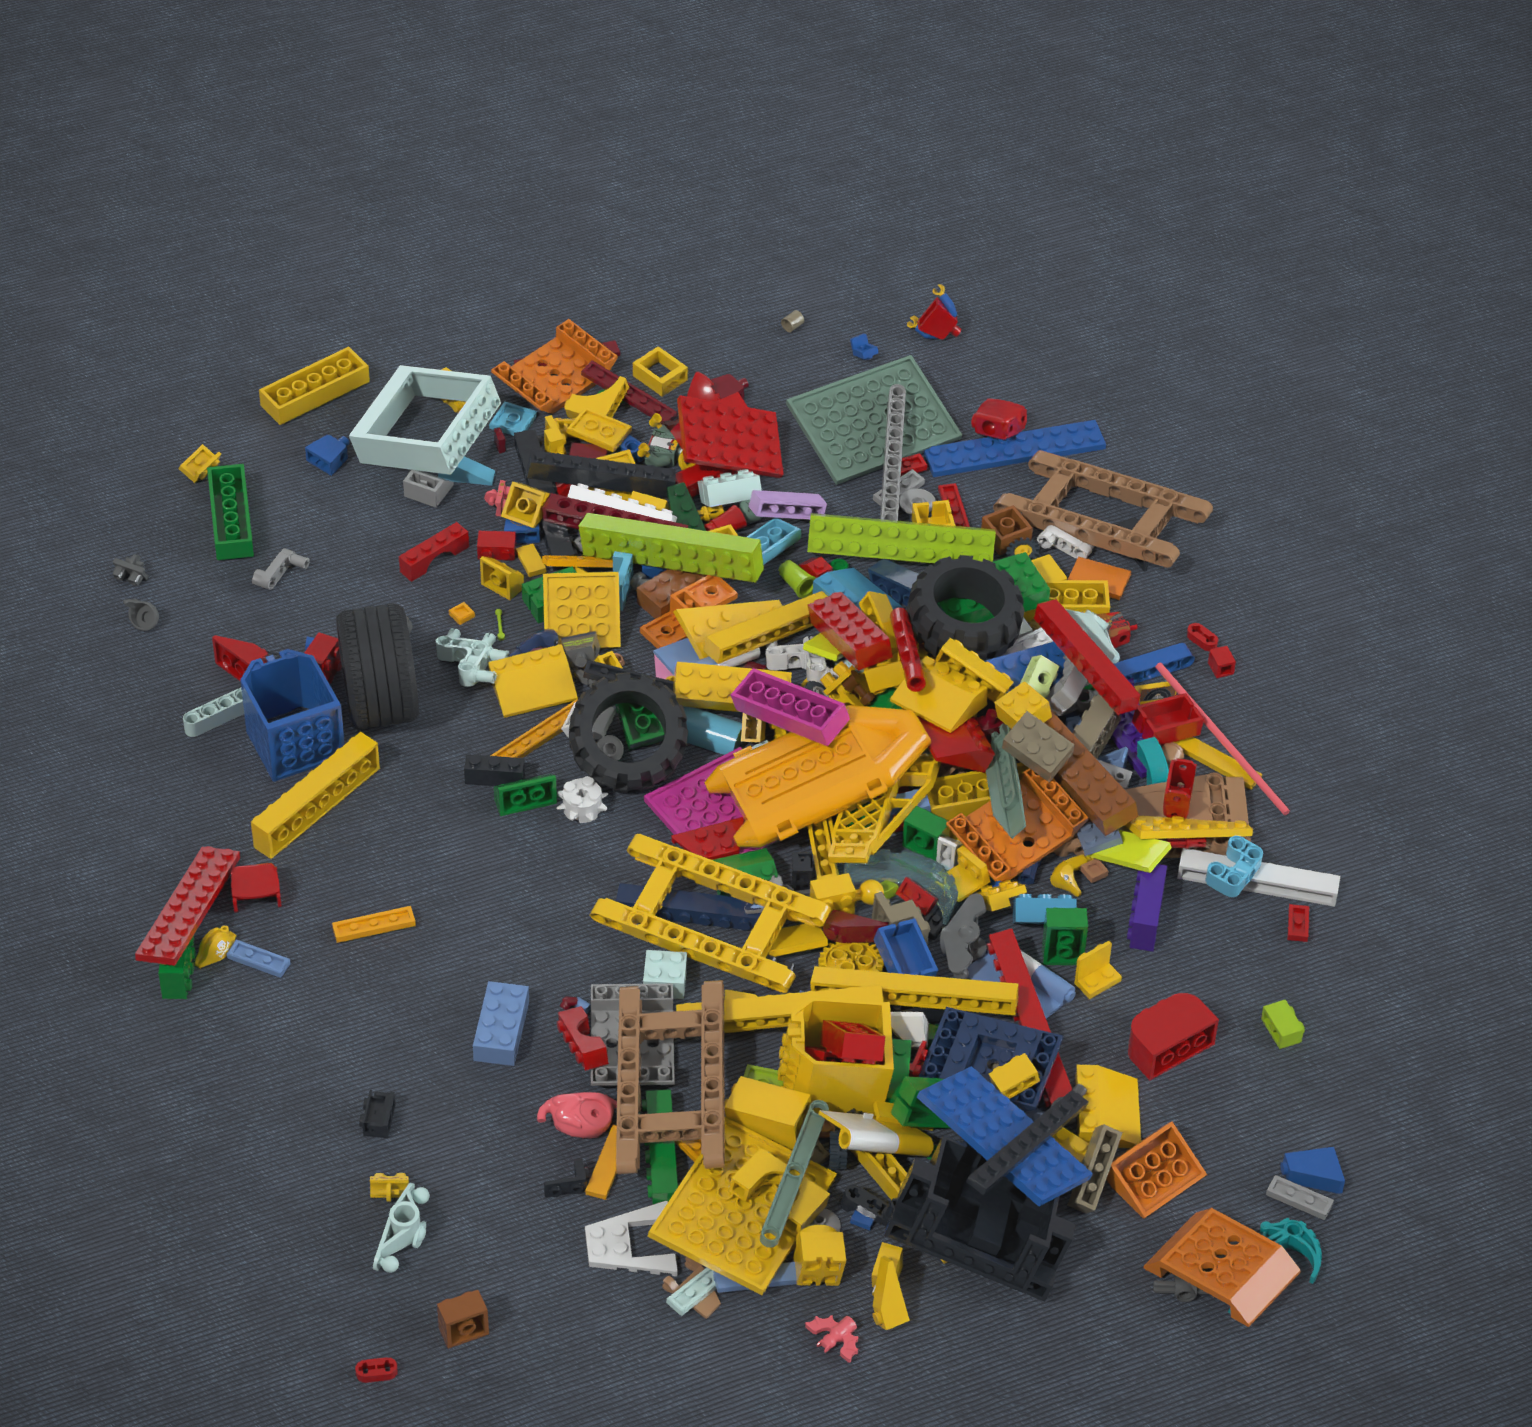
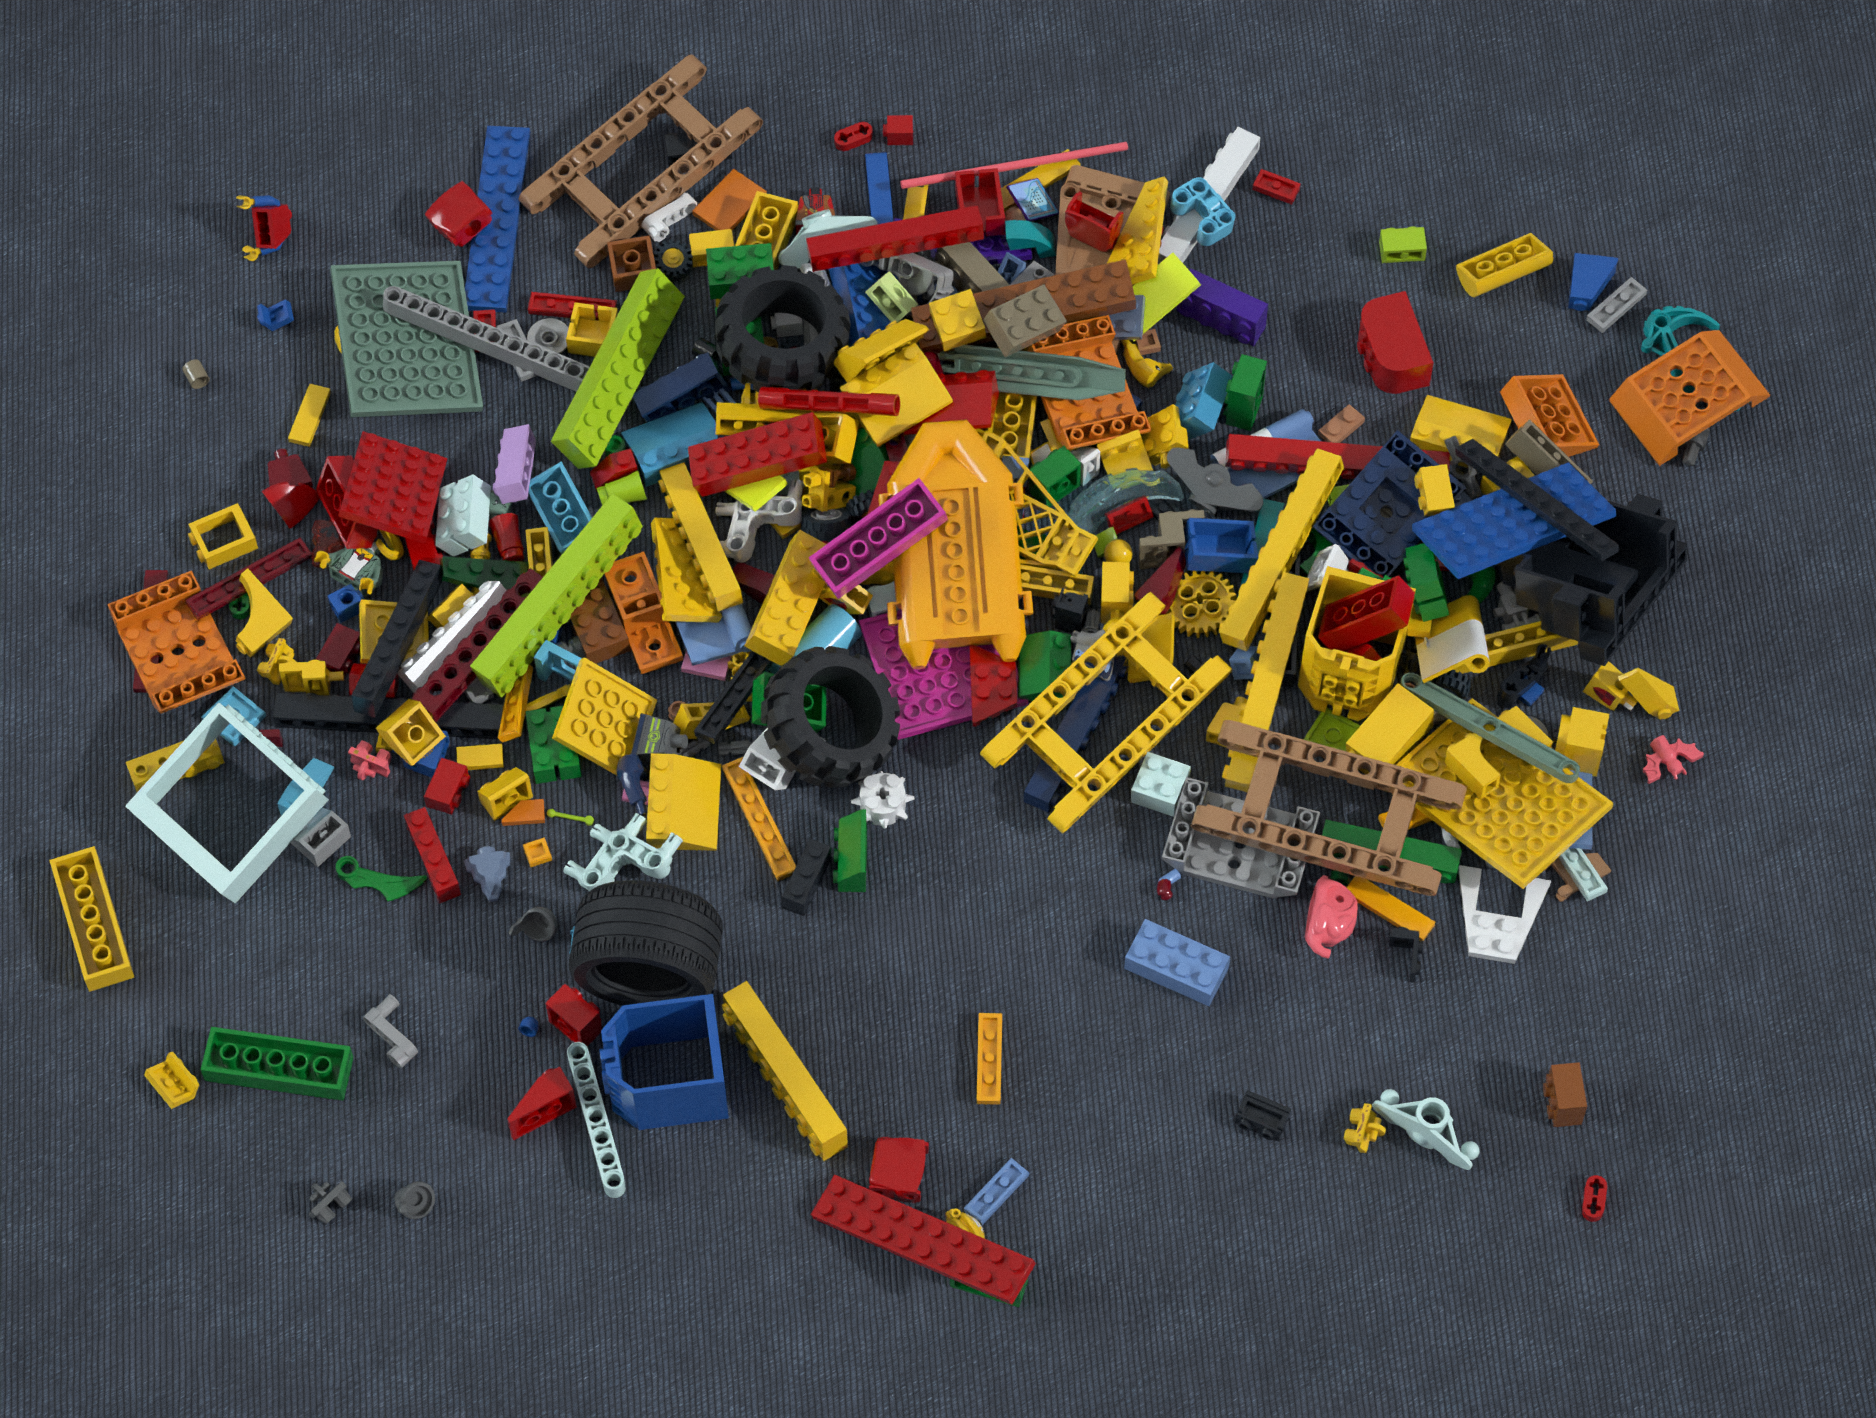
camera: 70 degrees left, 15 degrees up
(328, 453) = (214, 931): blue torso -> none
(403, 539) = (390, 886): none -> green piece
(433, 588) = (488, 870): none -> sand blue rock
(493, 598) = (526, 813): none -> orange tile
(588, 1050) = (1261, 880): red arch -> none
(599, 429) = (309, 623): yellow tile -> none
(784, 391) = (309, 415): none -> yellow tile
(1075, 1024) = (1341, 425): none -> nougat plate
(1094, 971) = (1288, 384): yellow bracket -> none
(1197, 751) = (1032, 200): none -> piece
(1297, 1100) = (1503, 264): none -> yellow brick

